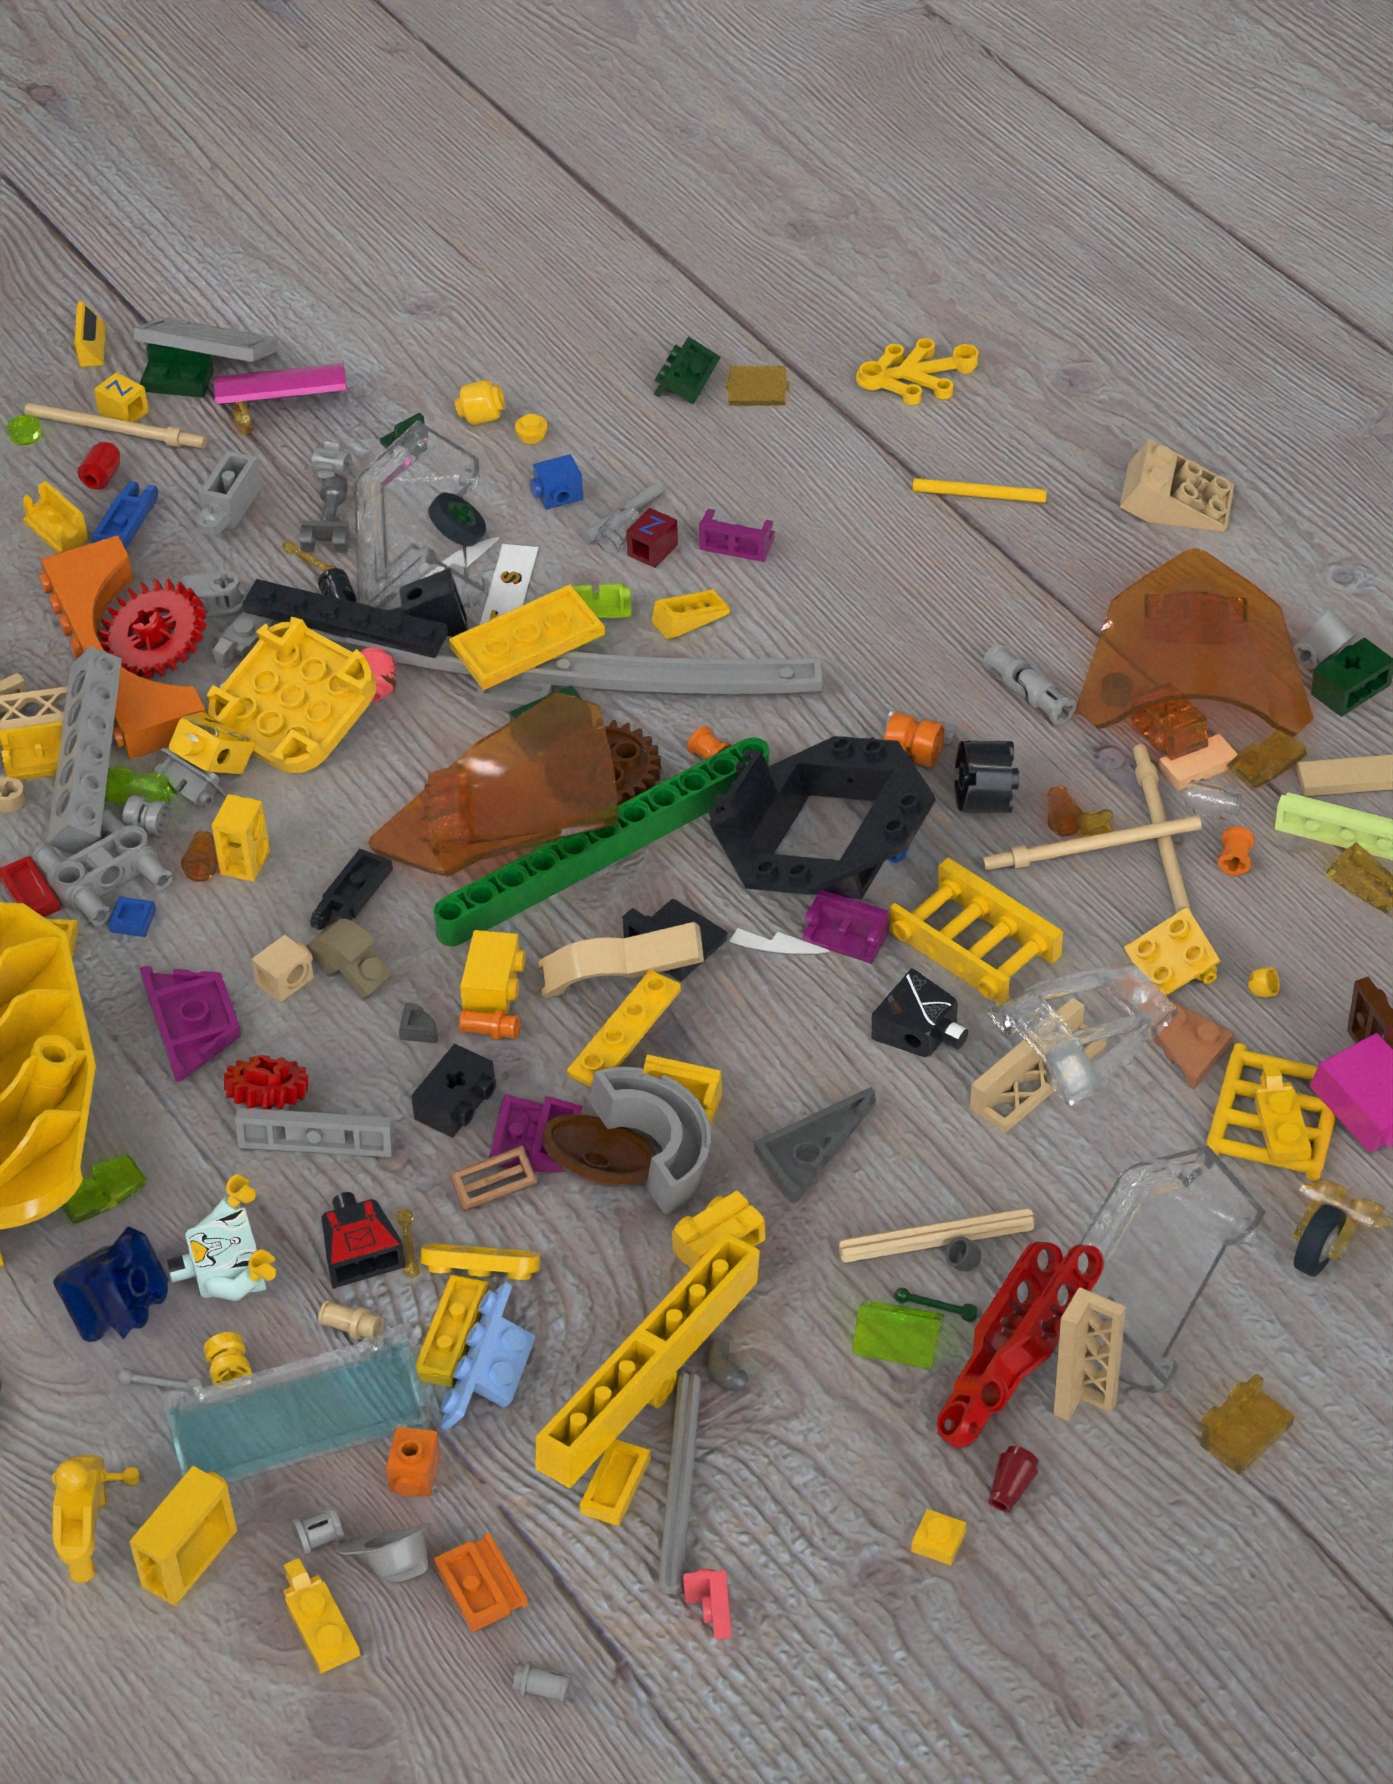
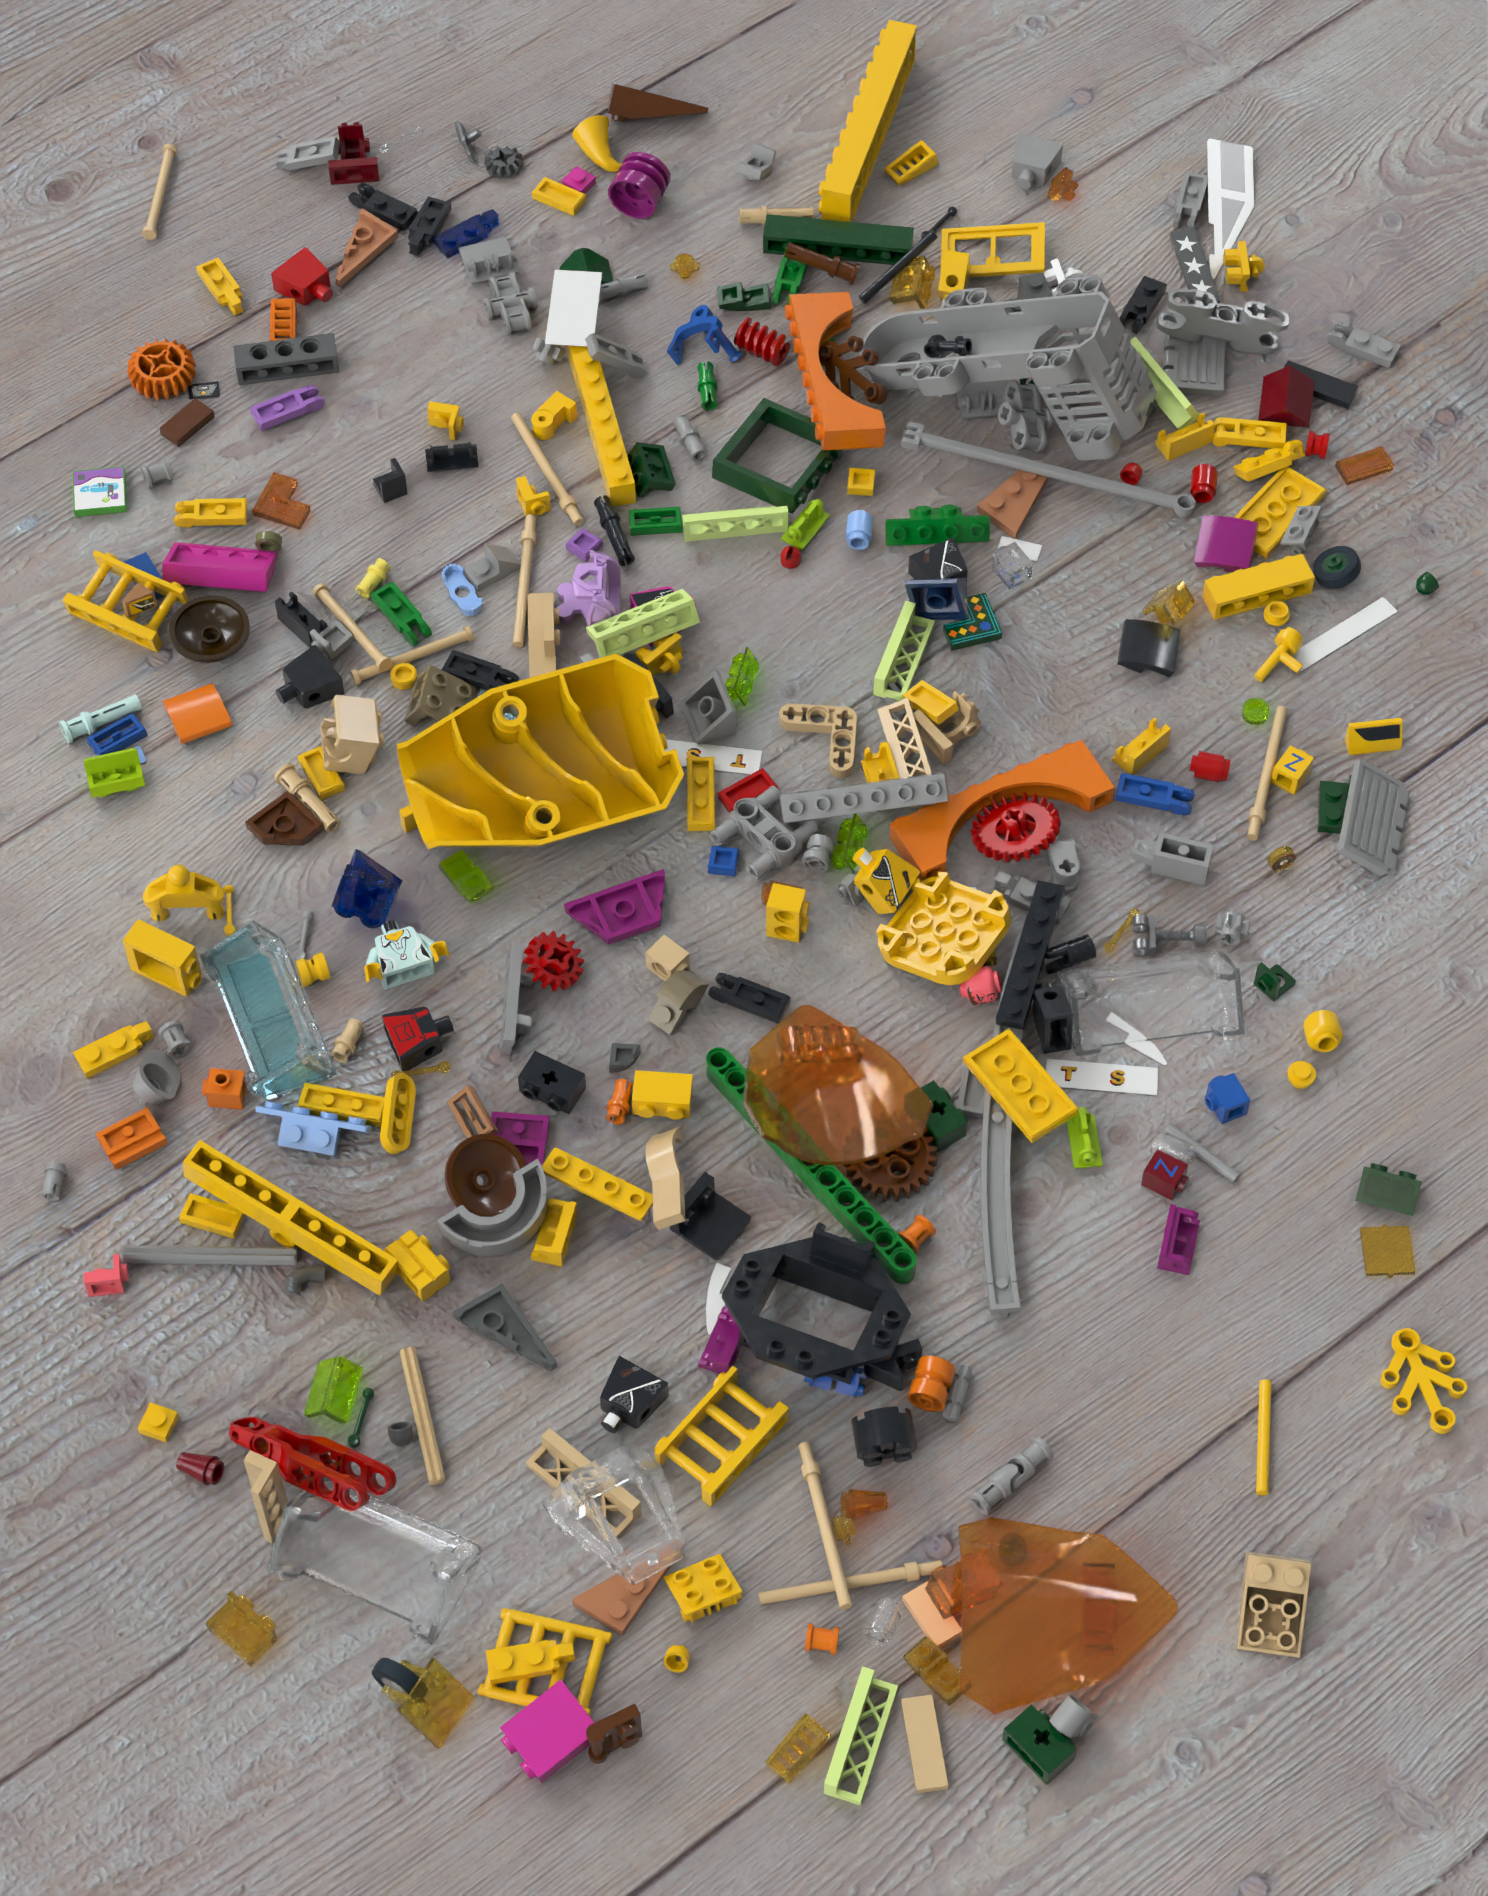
camera: 85 degrees right, 10 degrees up
(279, 383) = (1317, 878): dark pink slope -> none
(457, 519) = (1165, 1025): black wheel -> none
(677, 614) = (1079, 1190): yellow slope -> none

